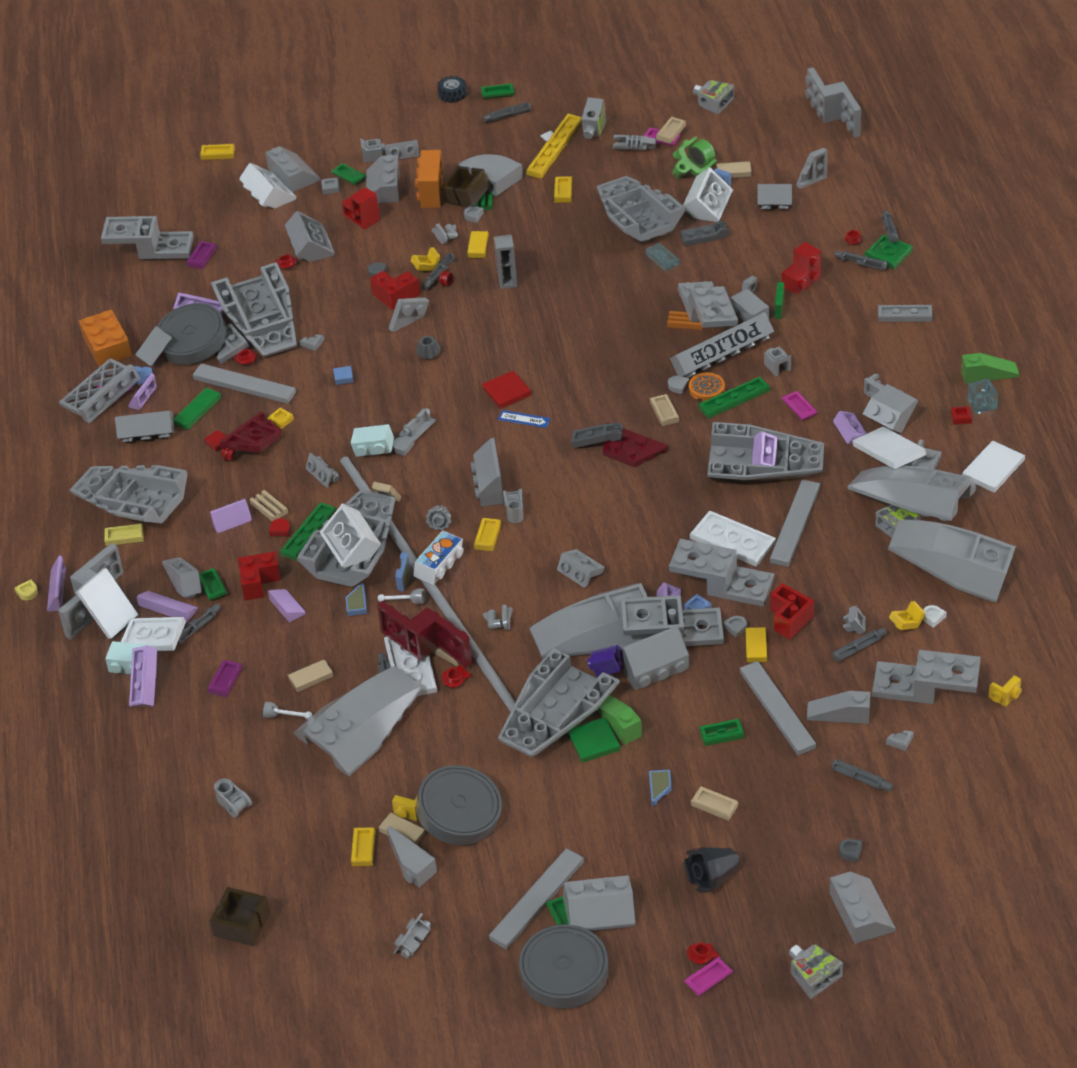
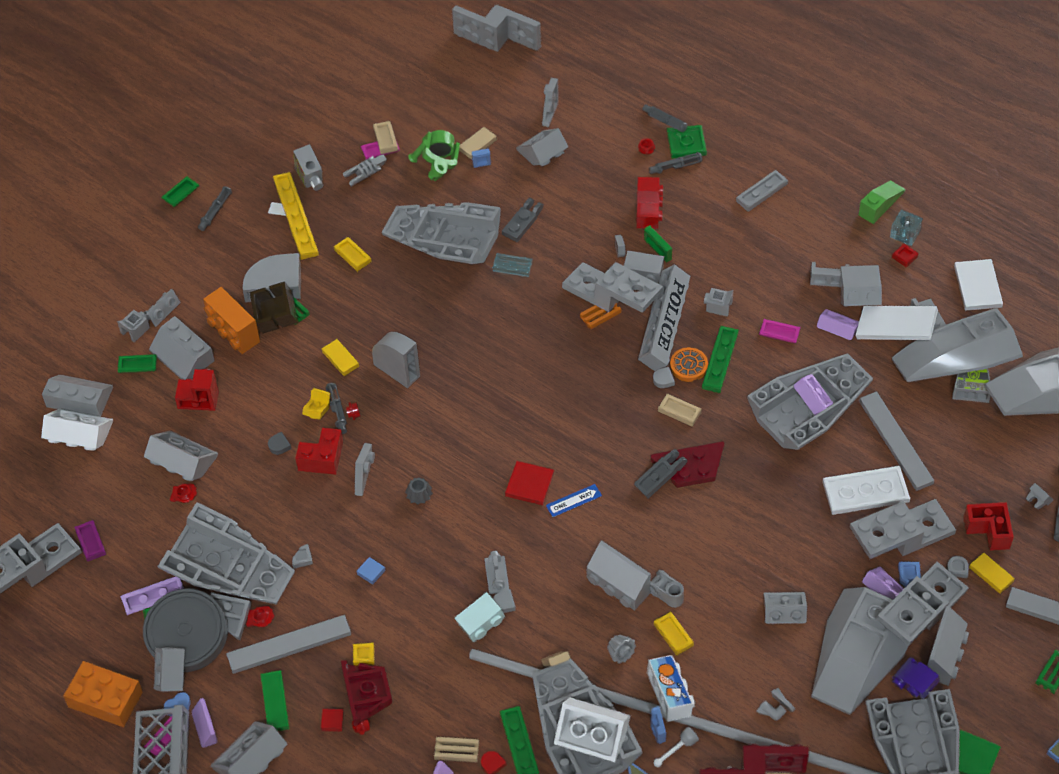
camera: 45 degrees left, 10 degrees up
(320, 470) = (460, 680): light grey hinge -> none
(330, 186) = (132, 387): light grey tile -> none
(443, 236) = (299, 365): light grey piece -> none
(452, 89) = (130, 213): black wheel -> none
(473, 214) = (300, 330): light grey tile -> none
(621, 719) = (980, 721): bright green slope -> none
(707, 196) = (488, 182): white slope -> none
(714, 95) = (382, 81): light grey torso -> none

